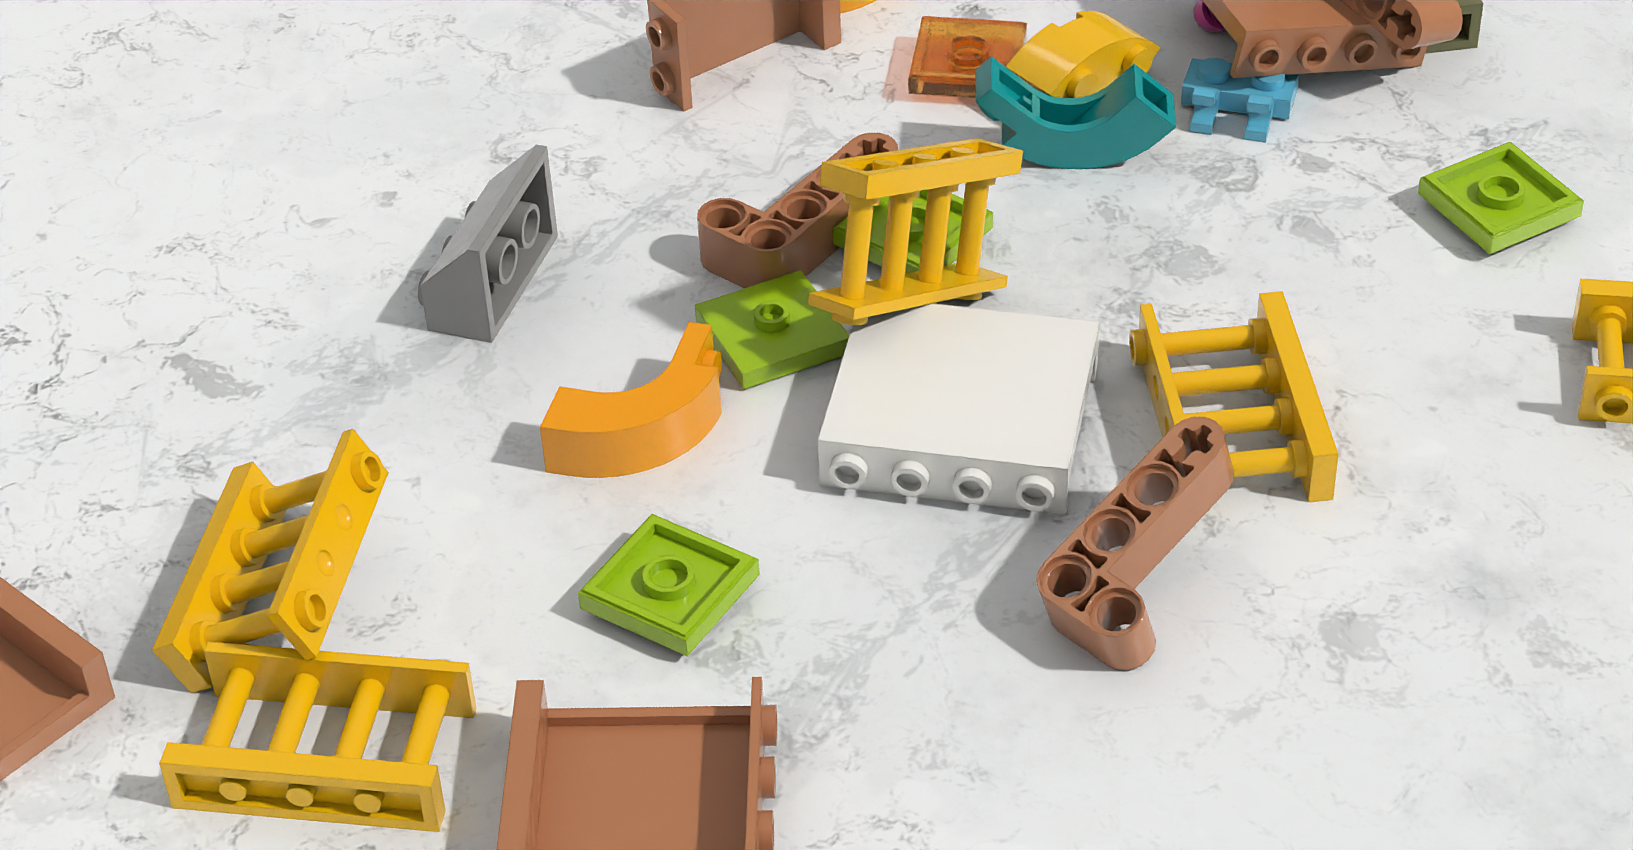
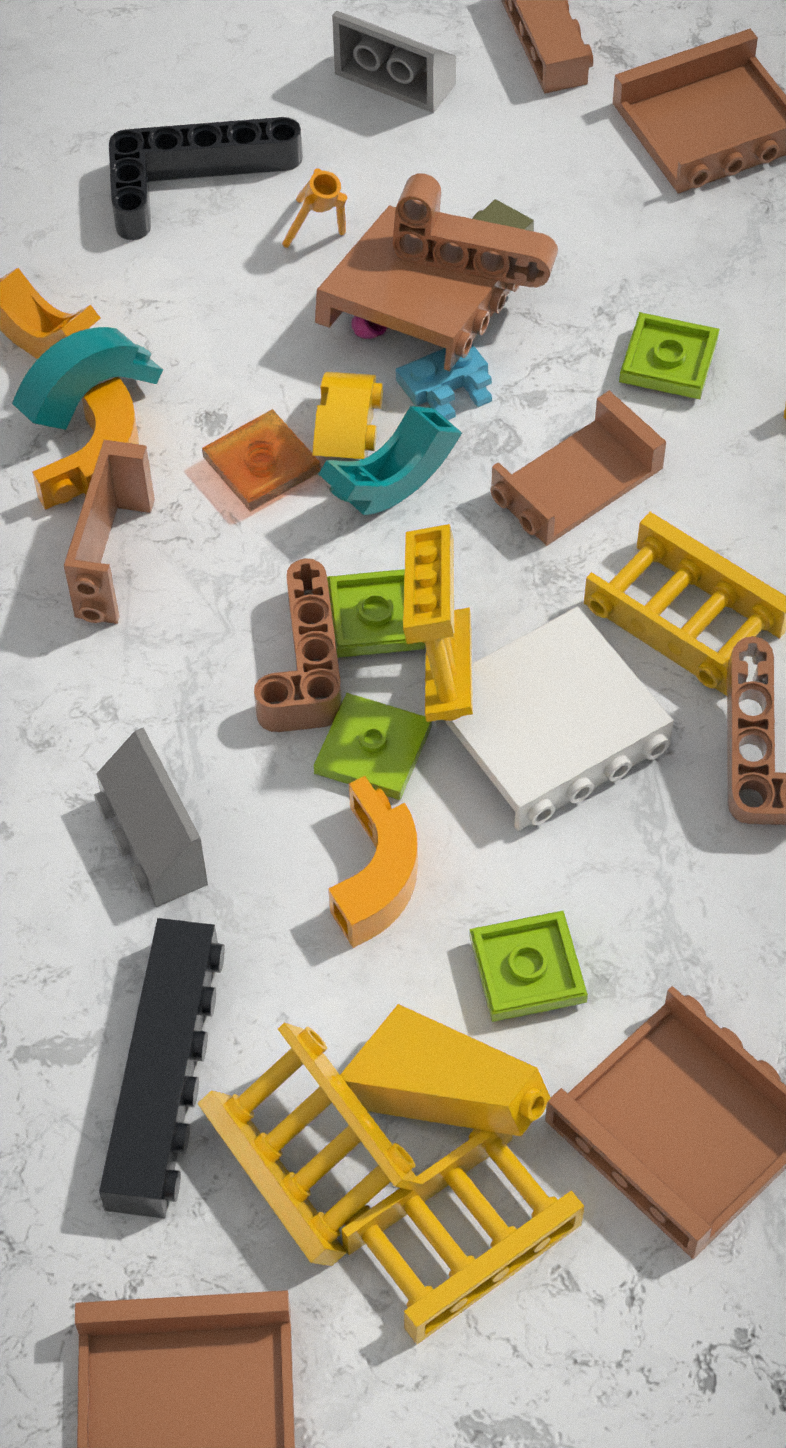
camera: 45 degrees left, 15 degrees up
(269, 421) = (160, 1069): none -> black brick
(448, 592) = (444, 1077): none -> yellow slope
(1269, 243) = (581, 472): none -> nougat panel

